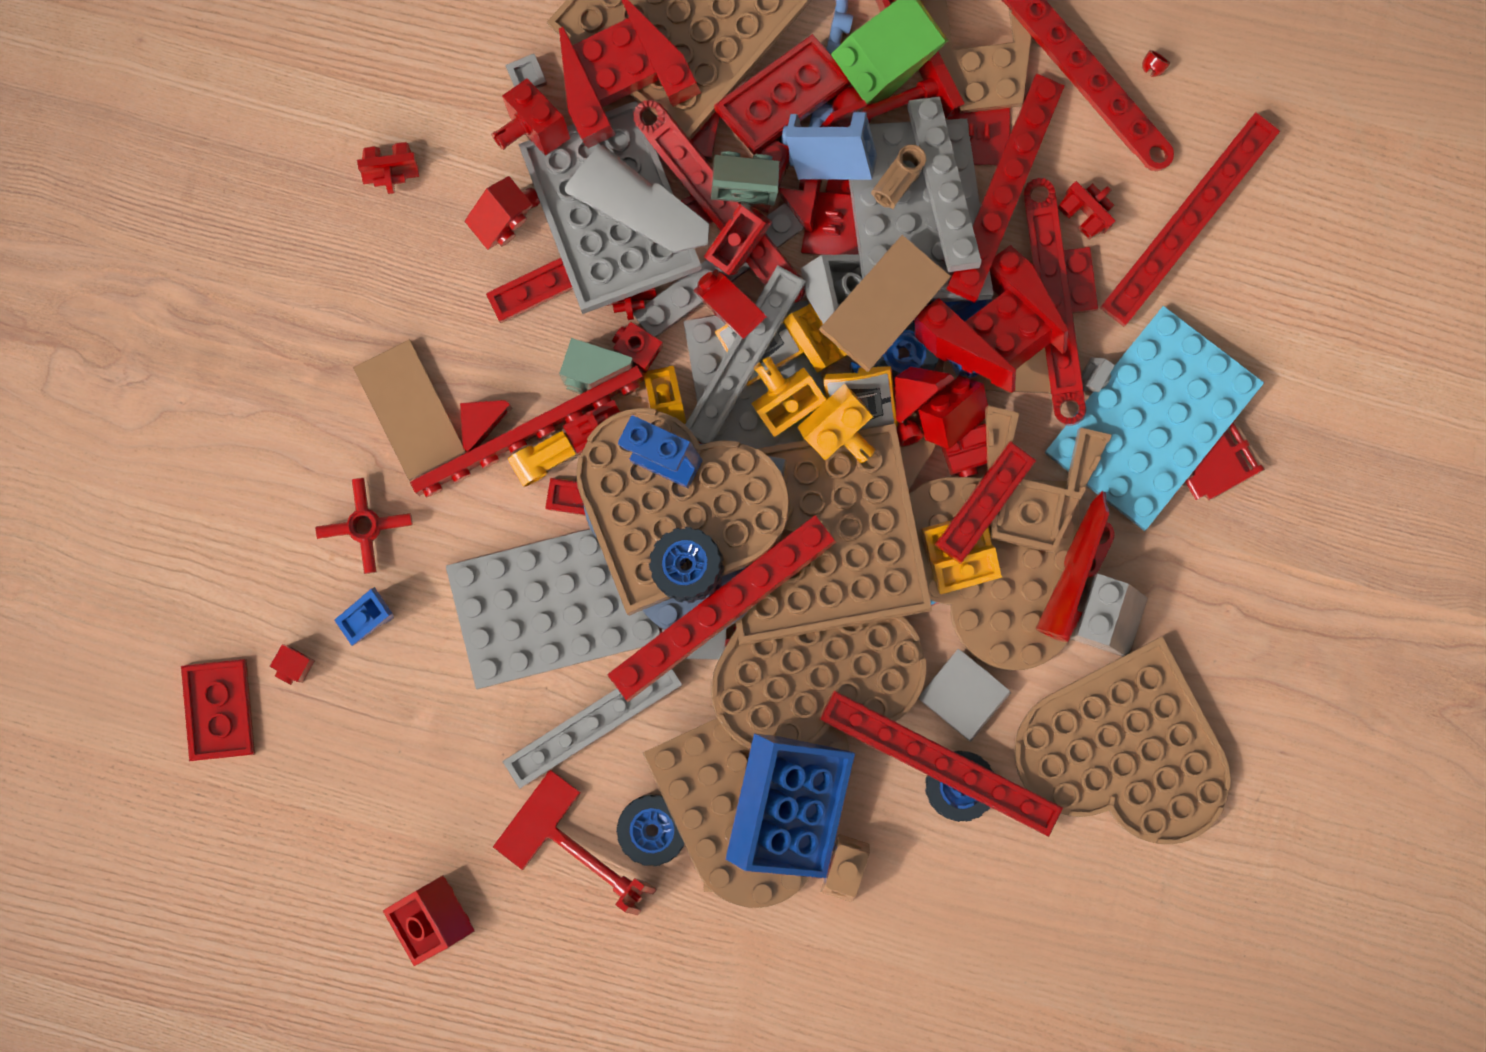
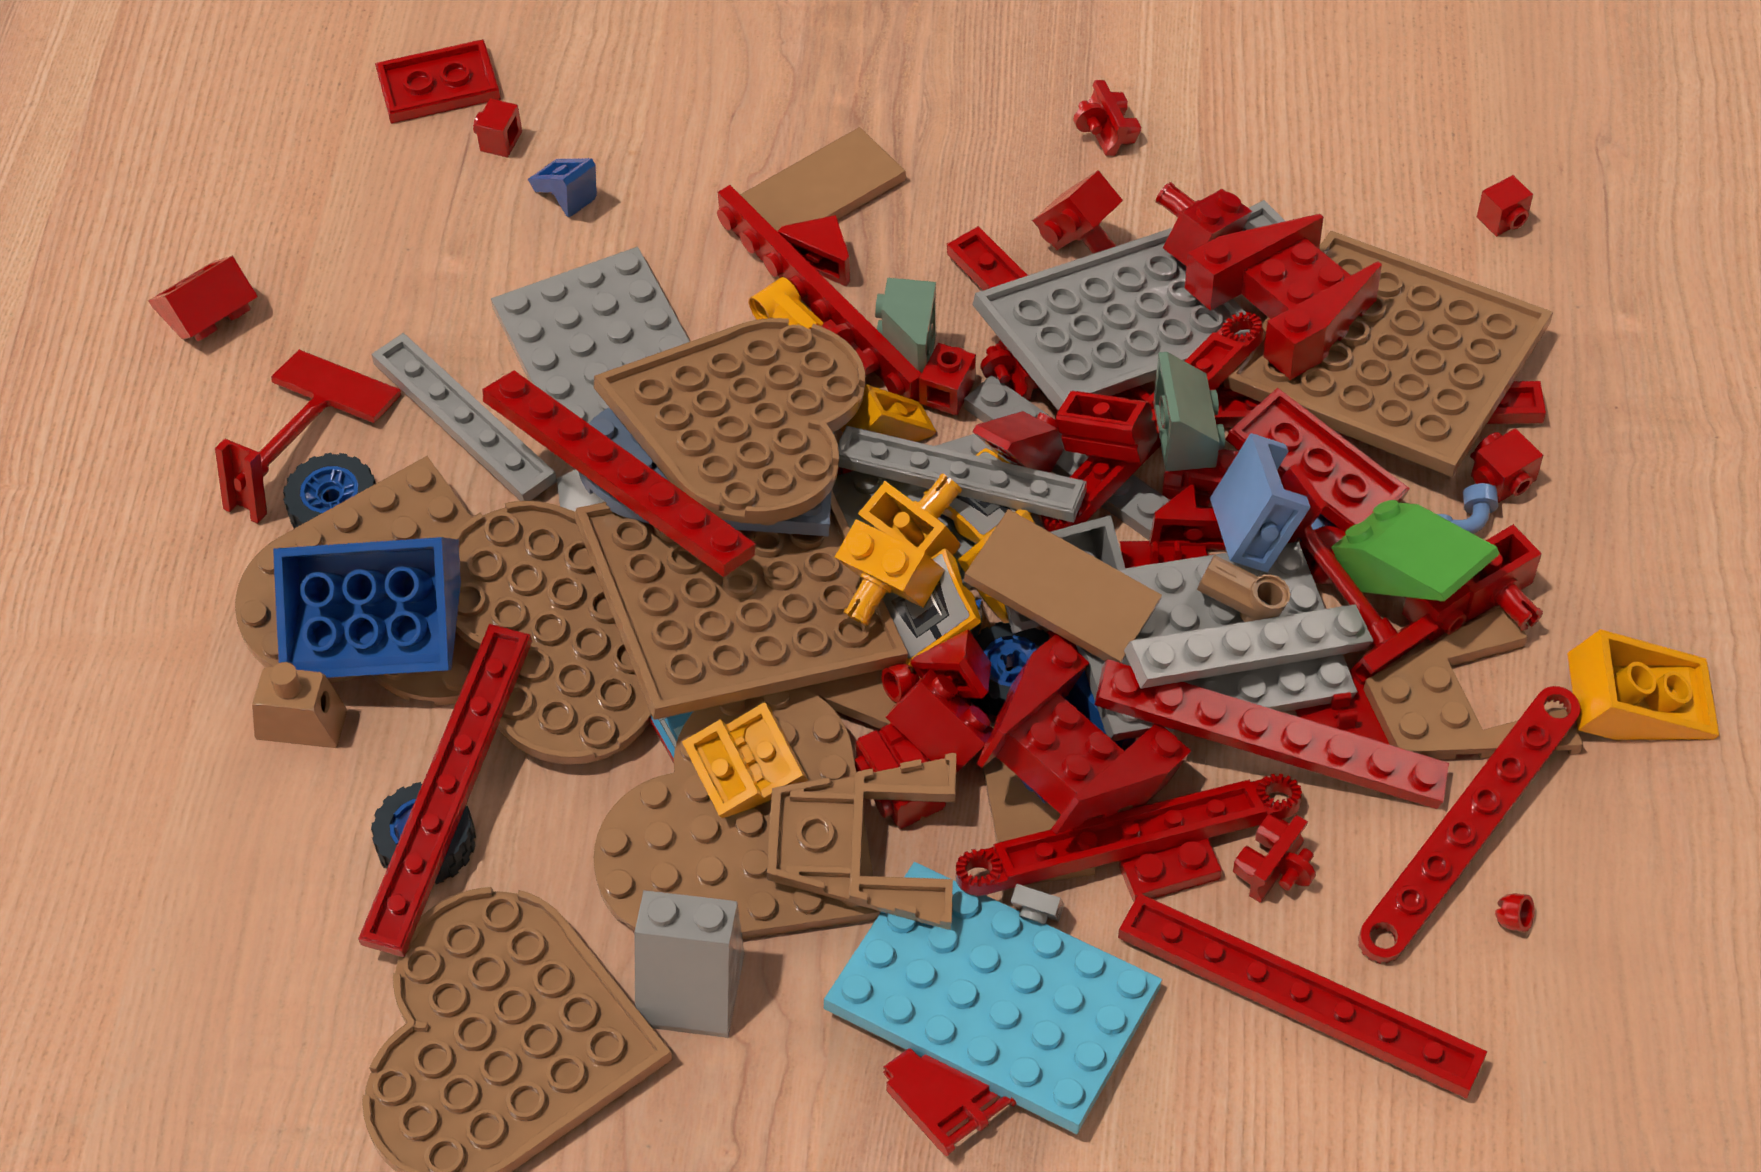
camera: 85 degrees right, 30 degrees down
(350, 527) = (672, 164): red bar -> none
(630, 199) = (1126, 323): light grey panel -> none
(660, 451) = (810, 335): blue panel -> none
(672, 552) = (663, 413): black wheel -> none
(964, 695) = (550, 816): light grey slope -> none
(985, 502) = (818, 765): red tile -> none
(1080, 562) = (783, 910): red panel -> none

